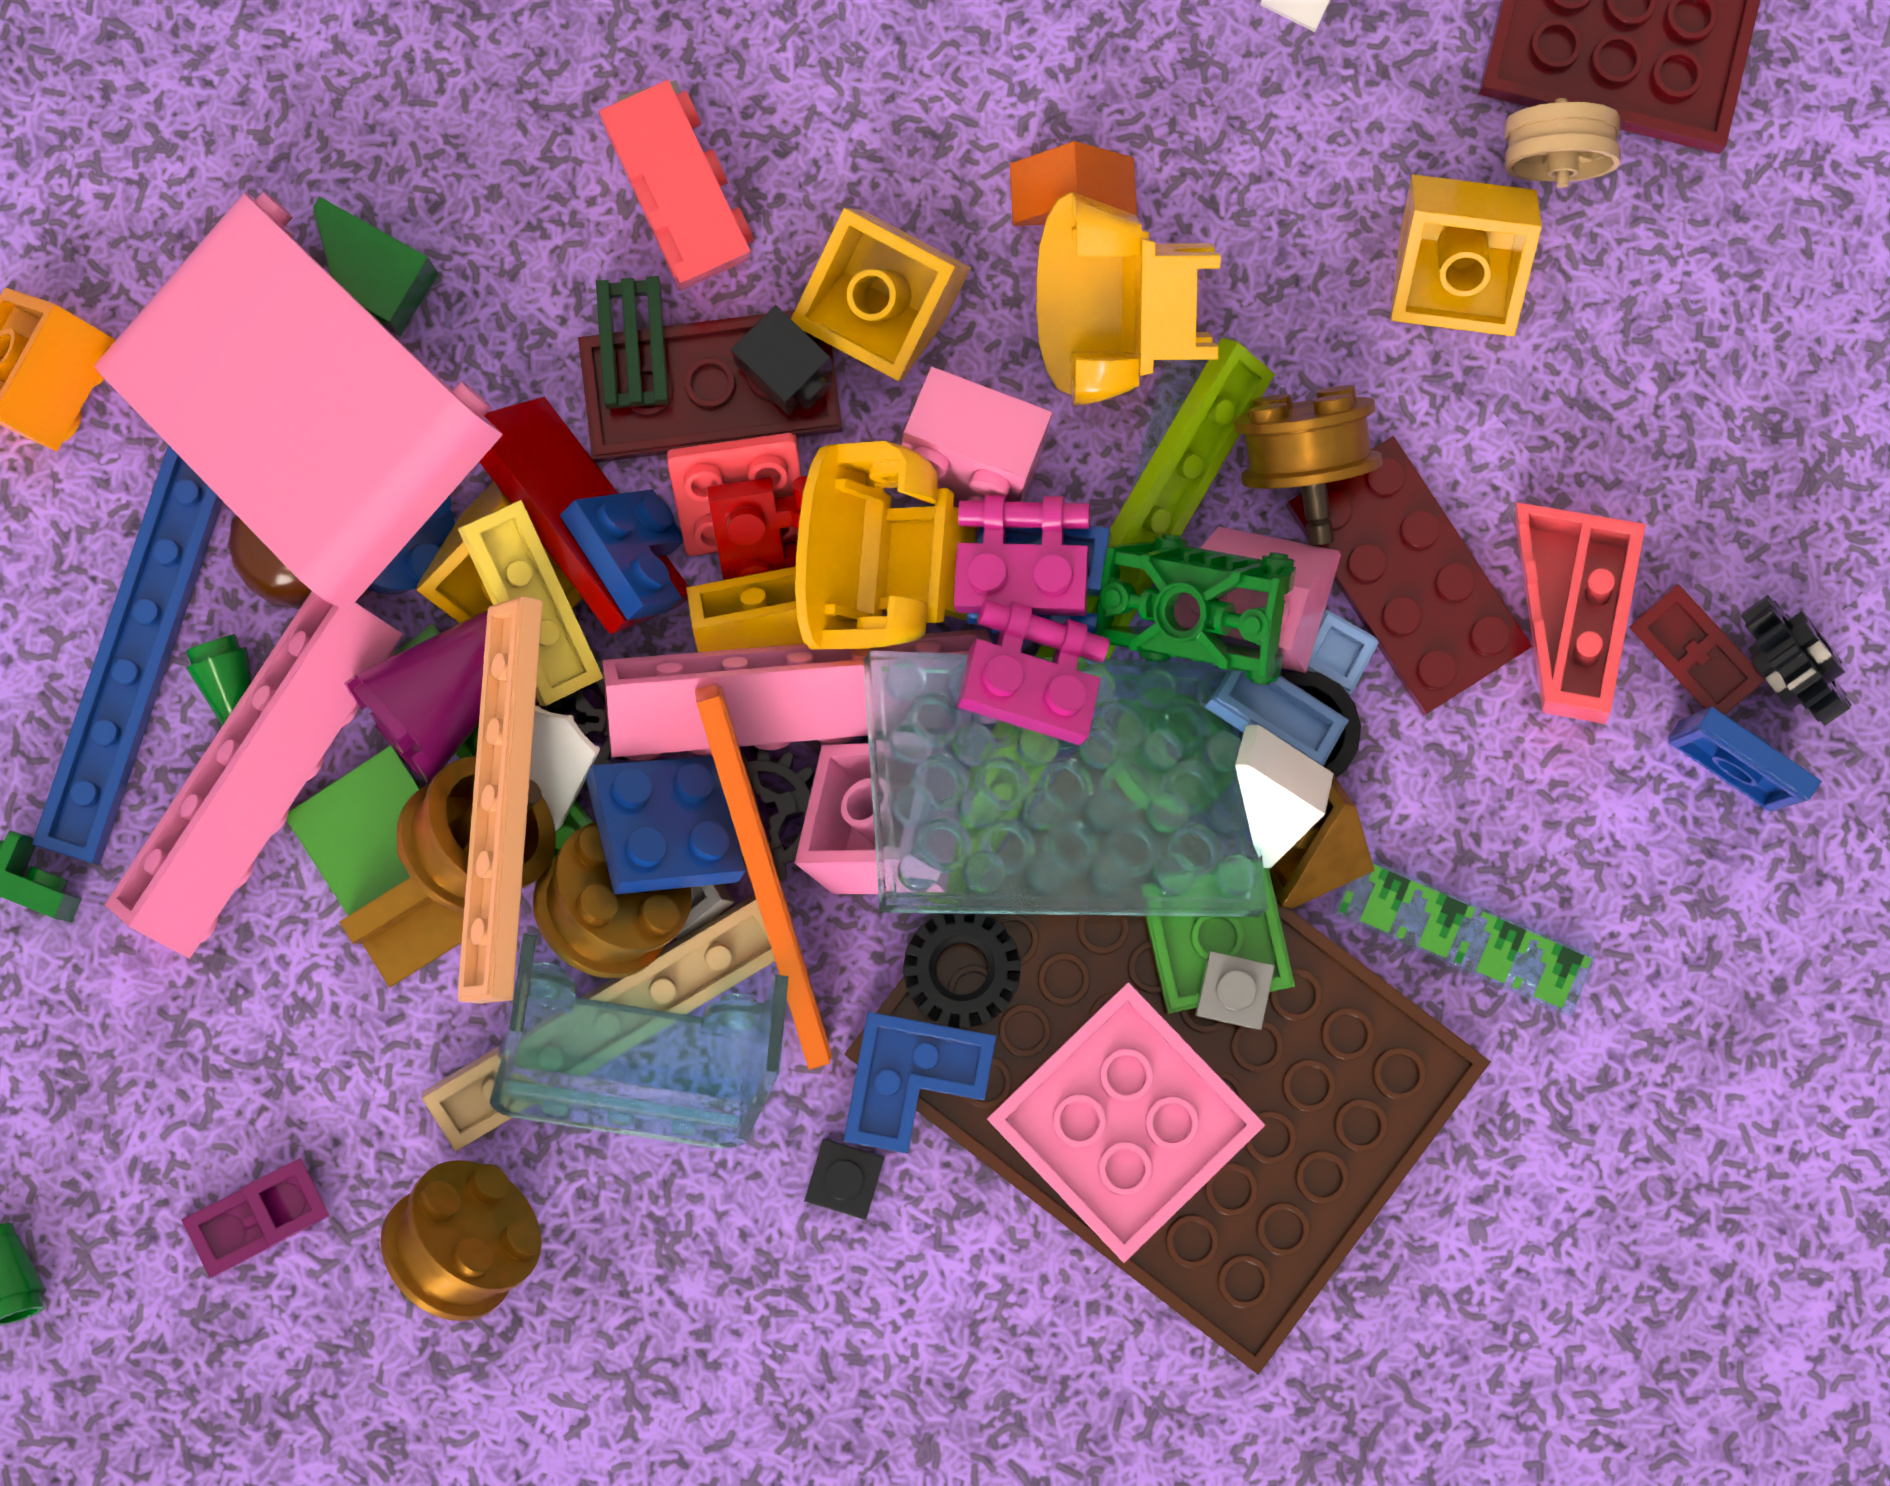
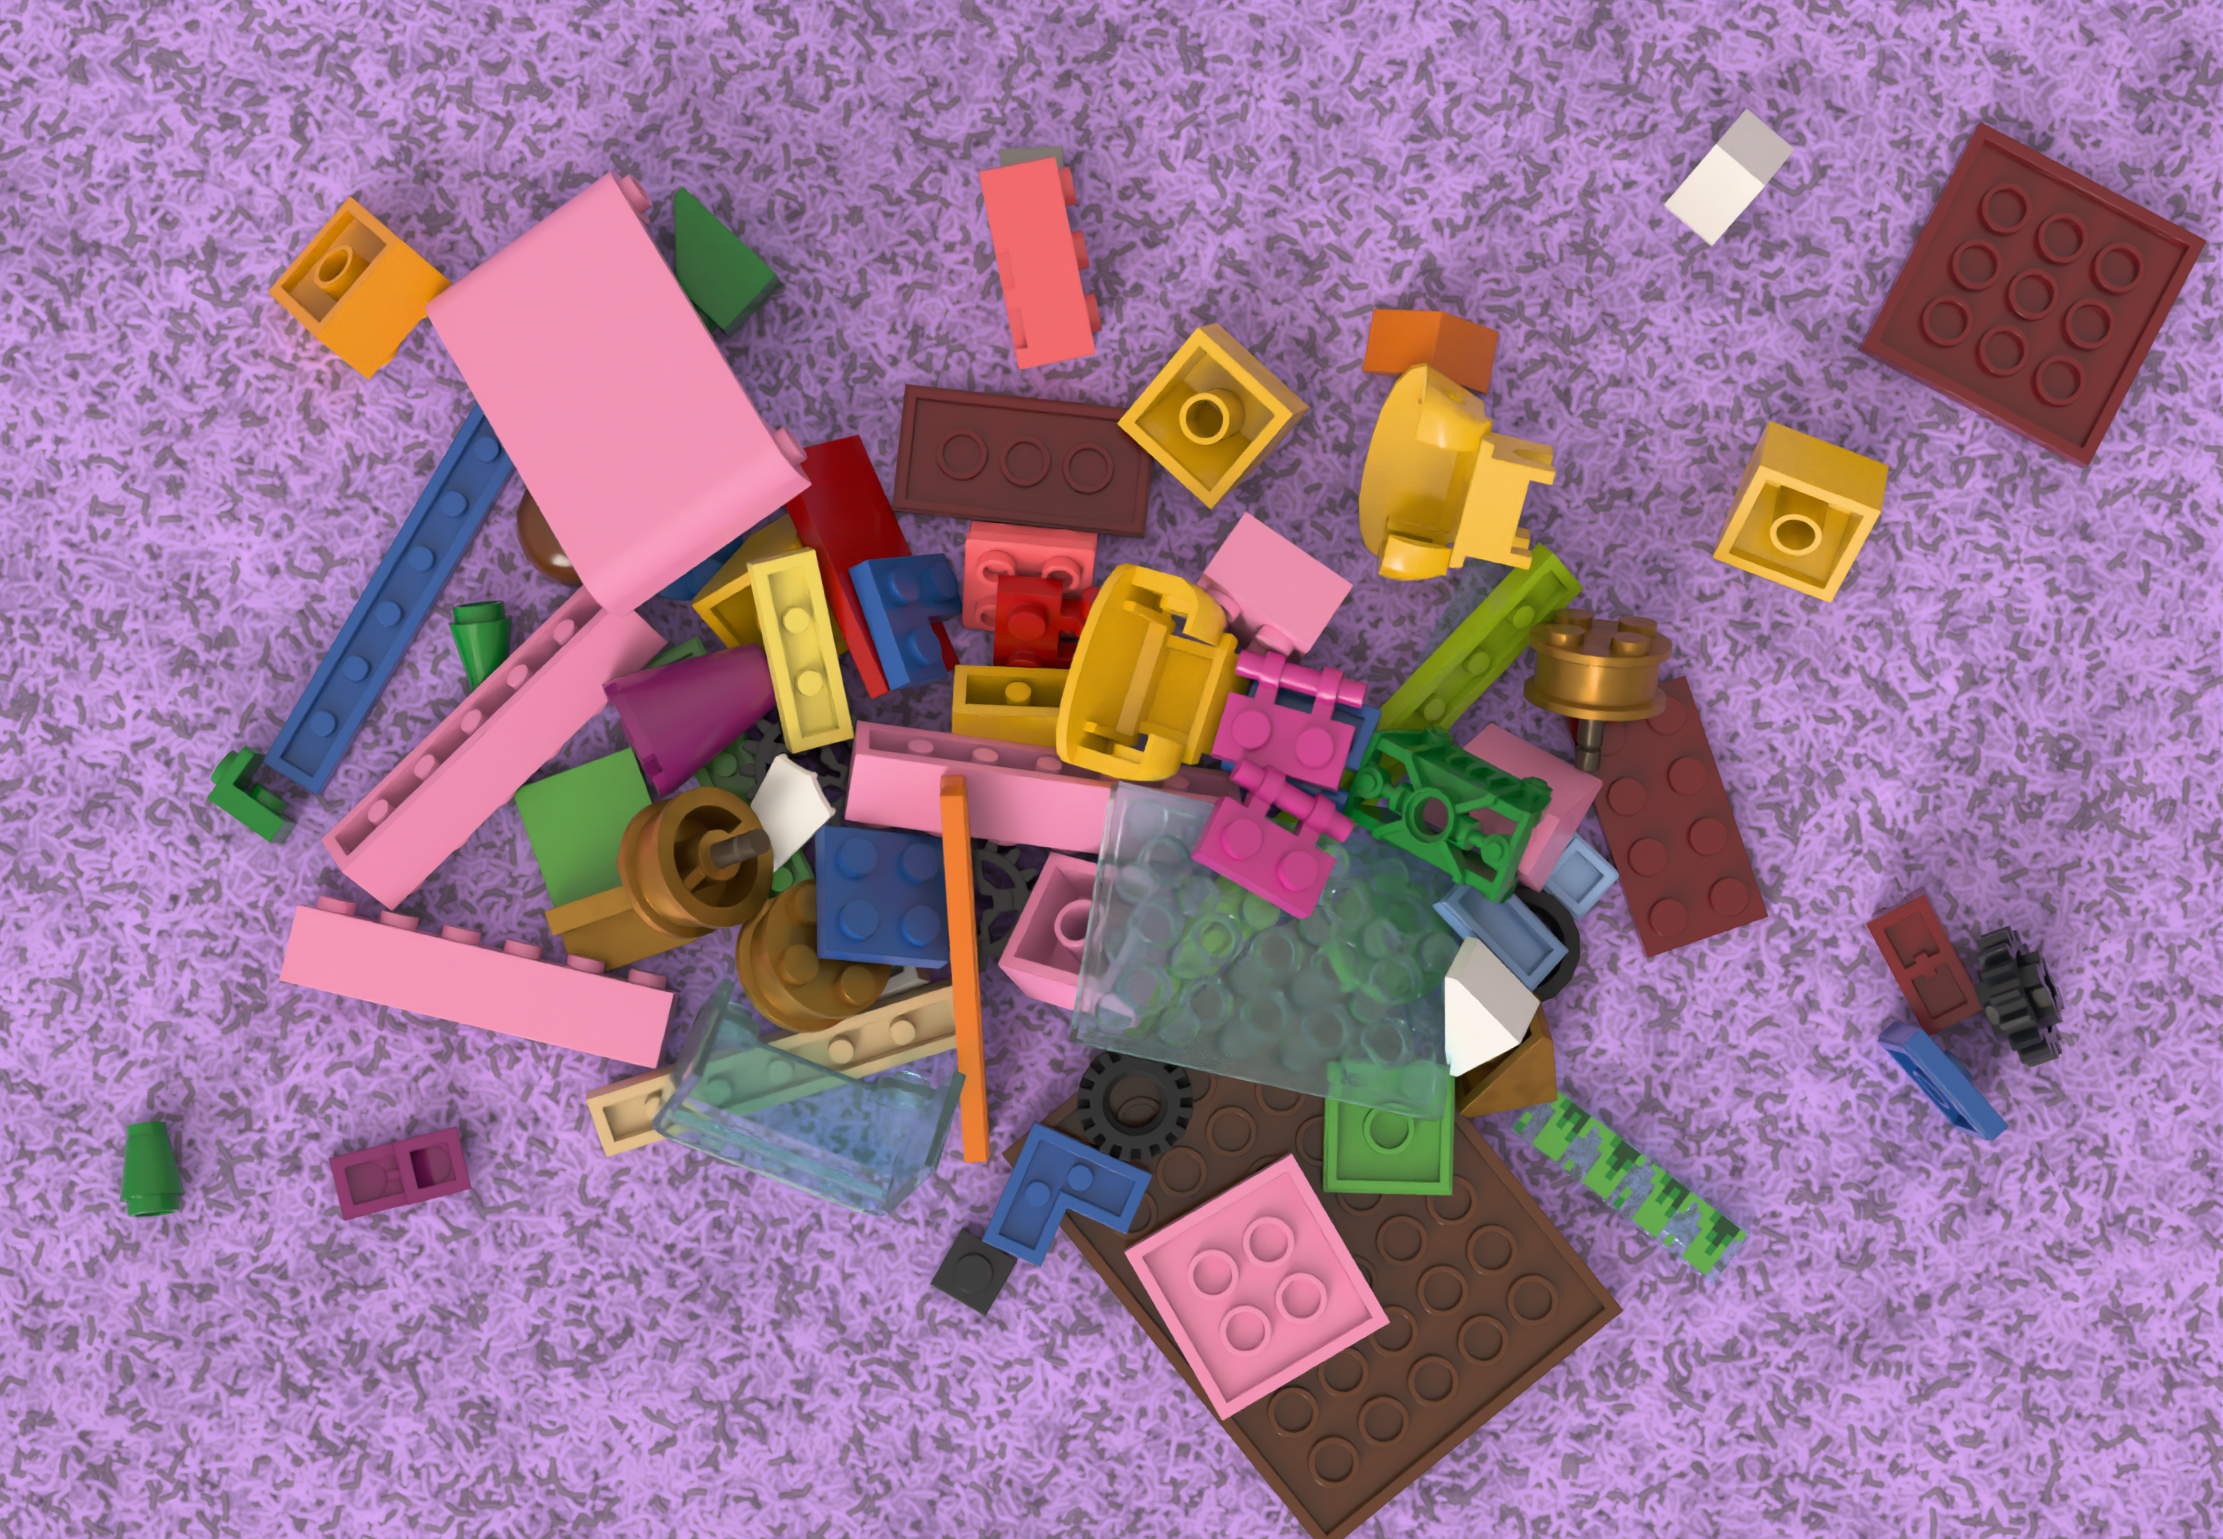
camera: 10 degrees right, 5 degrees up
(285, 1009) = (481, 984): none -> bright pink brick
(460, 1240) = (594, 1246): pearl gold wheel -> none
(500, 802) = (729, 844): light nougat tile -> none
(628, 290) = (965, 350): dark green tile -> none
(784, 362) = (1103, 463): black brick -> none
(1234, 990) = (1392, 1187): light grey plate -> none
(1562, 142) = (1926, 425): tan wheel -> none
(1578, 604) = (1822, 889): coral wedge -> none

